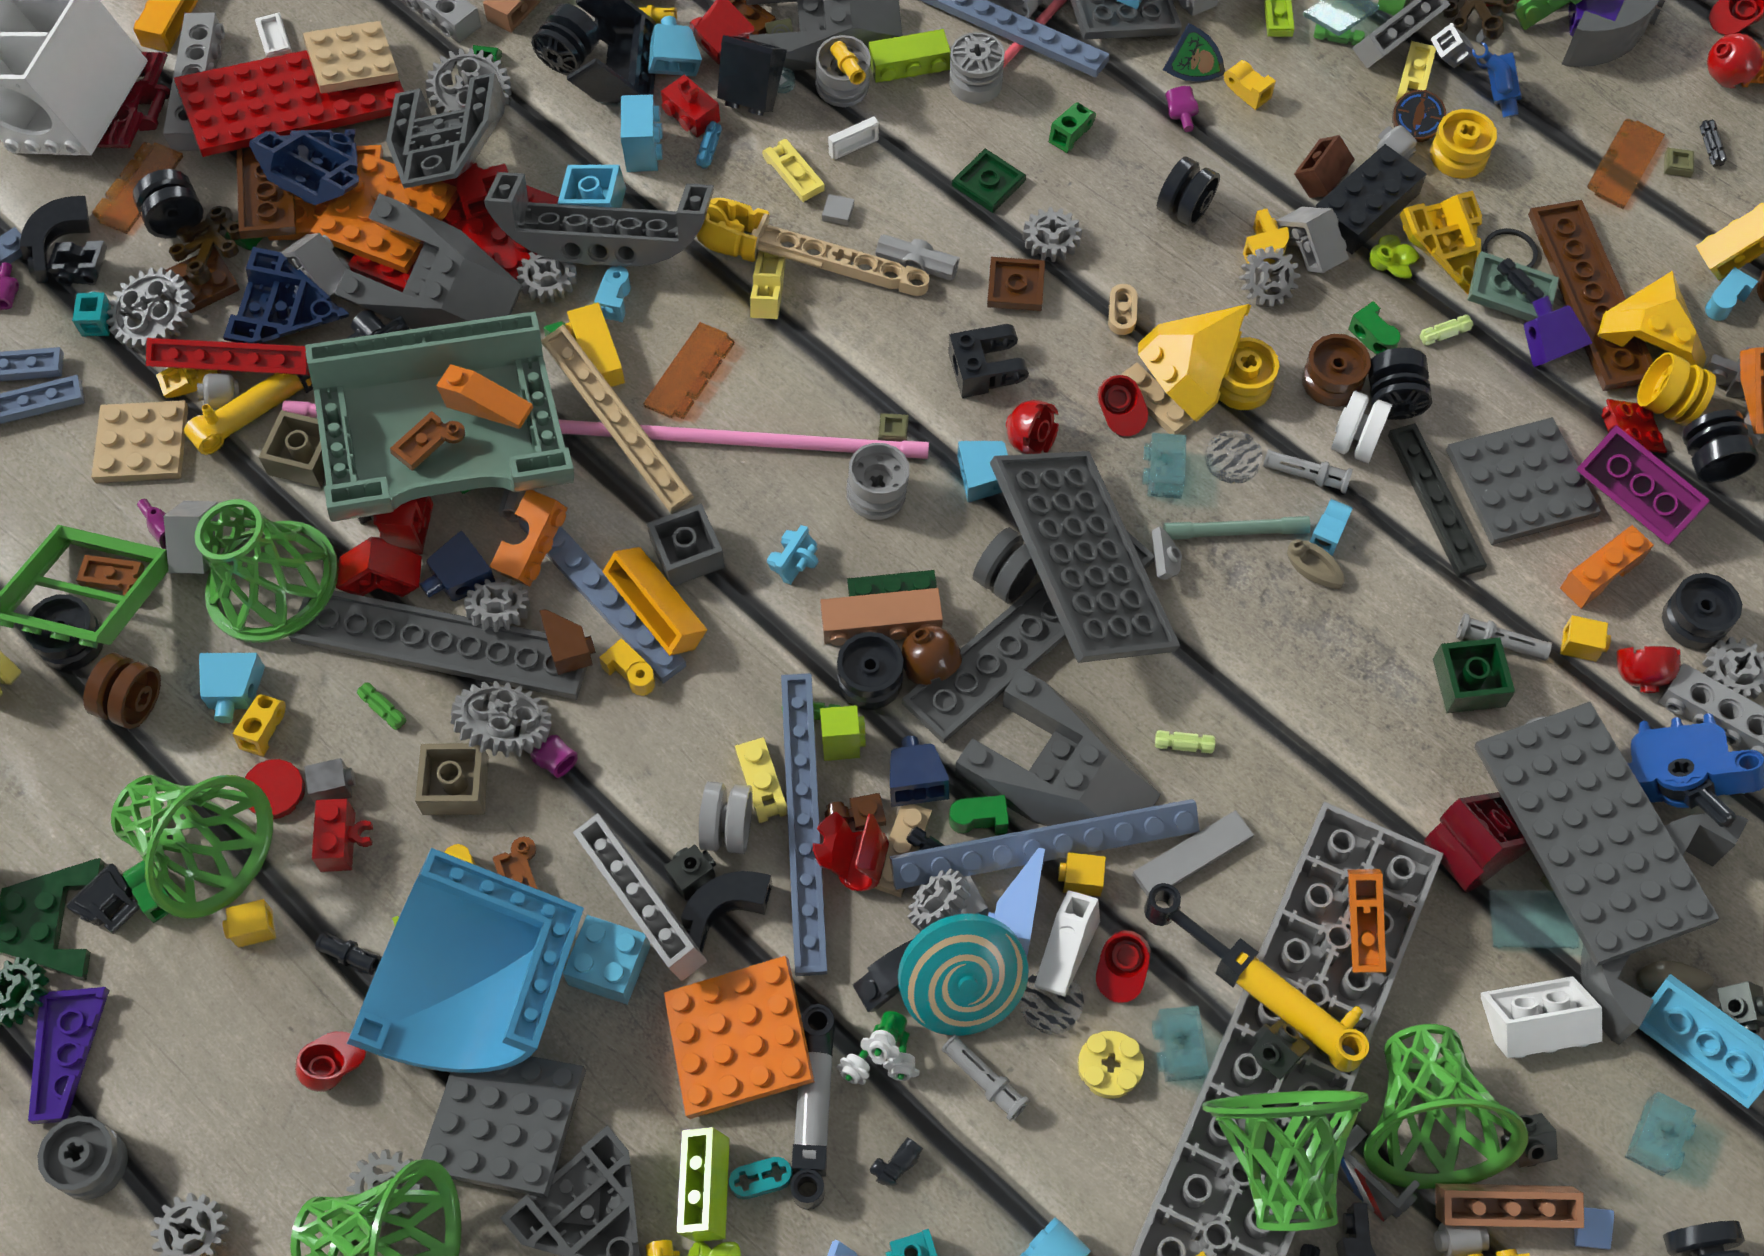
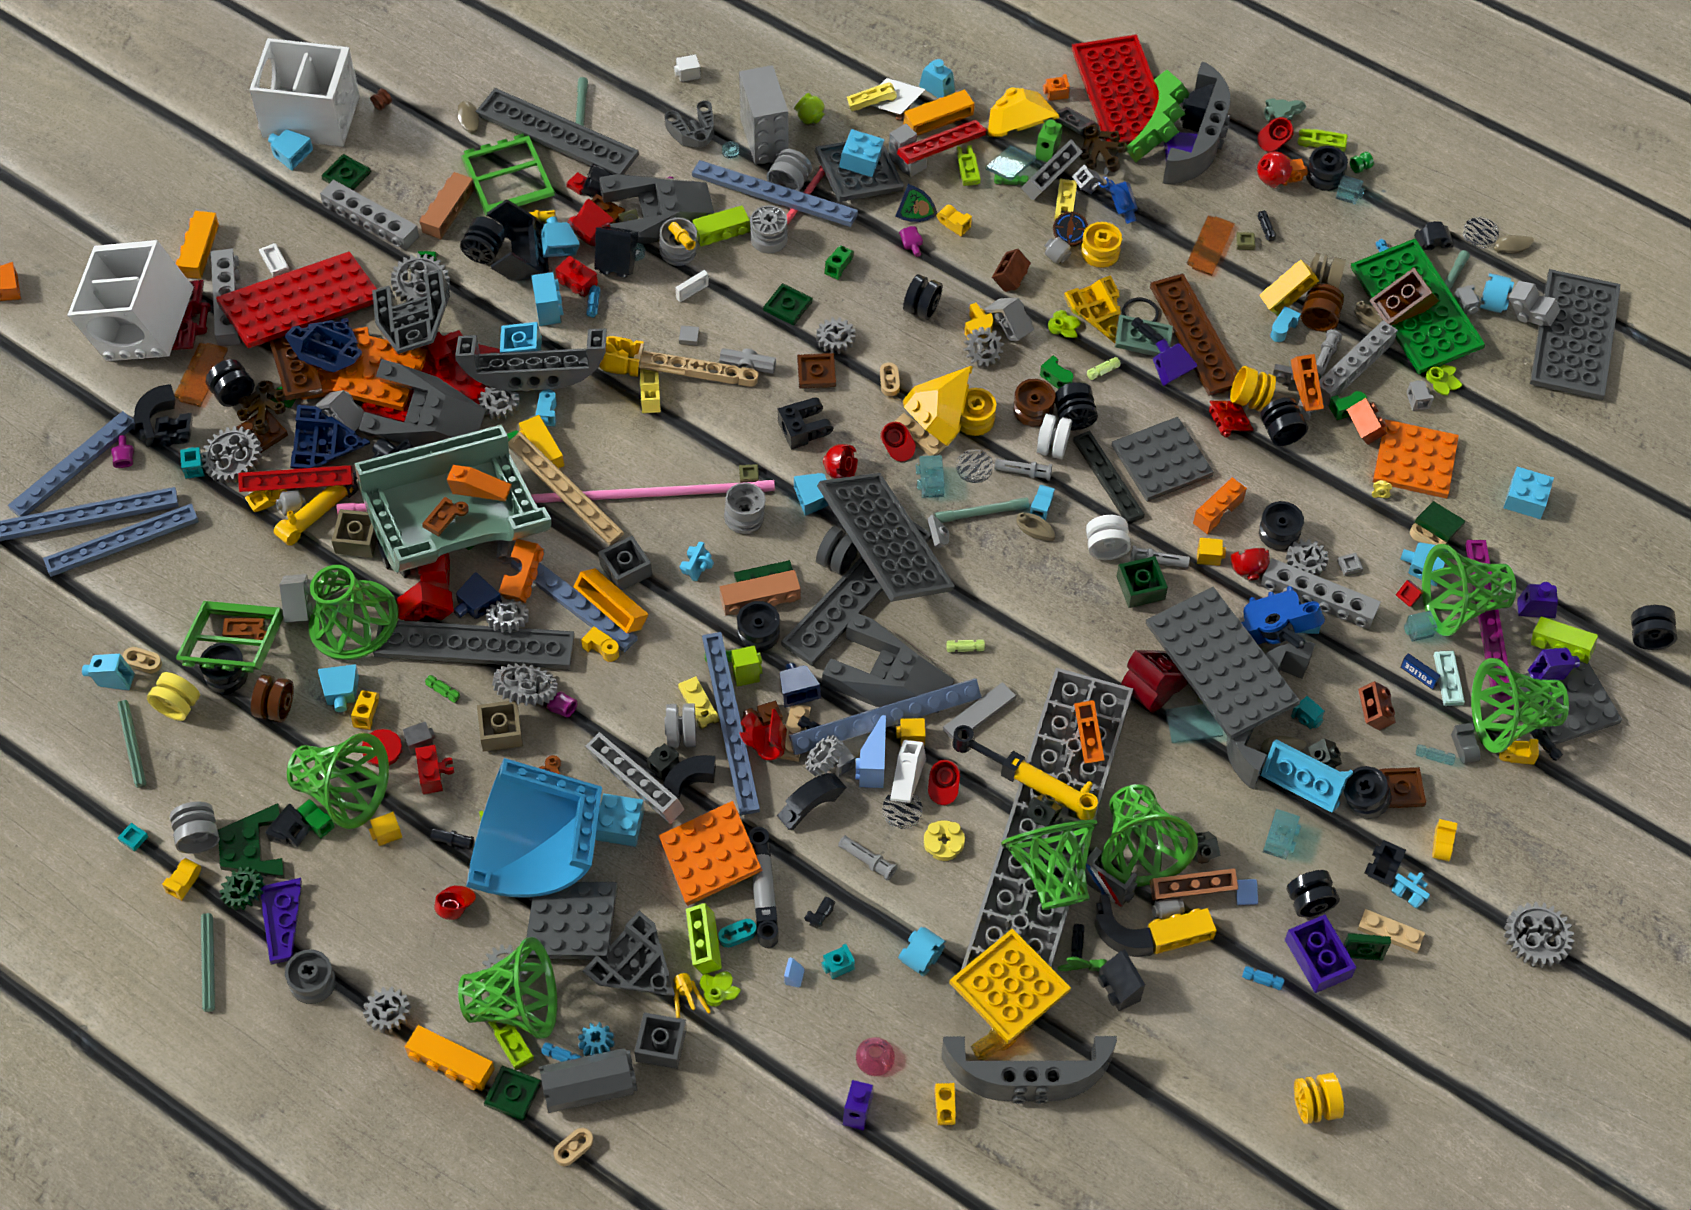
camera: 10 degrees left, 5 degrees down
(140, 441) = (243, 542): tan plate -> none
(154, 521) = (268, 592): magenta piece -> none
(350, 57) = (335, 268): tan plate -> none
(567, 643) = (559, 632): reddish brown slope -> none
(688, 372) = (607, 453): clear orange windscreen -> none
(794, 170) = (654, 312): light yellow plate -> none
(881, 1047) = (801, 842): white plant -> none
(930, 655) = (795, 611): reddish brown cylinder -> none
(963, 974) = (845, 796): teal dish -> none
(979, 813) = (841, 704): green leg -> none
(1185, 1025) = (986, 822): clear light blue brick -> none
(1373, 195) = (1045, 286): black brick -> none
(1428, 597) = (1108, 537): none -> white wheel
(1542, 1017) = (1204, 778): white slope -> none
(1643, 485) = (1237, 452): magenta brick -> none
(1657, 317) = (1238, 344): yellow wedge -> none
(1726, 932) = (1308, 713): none -> teal brick

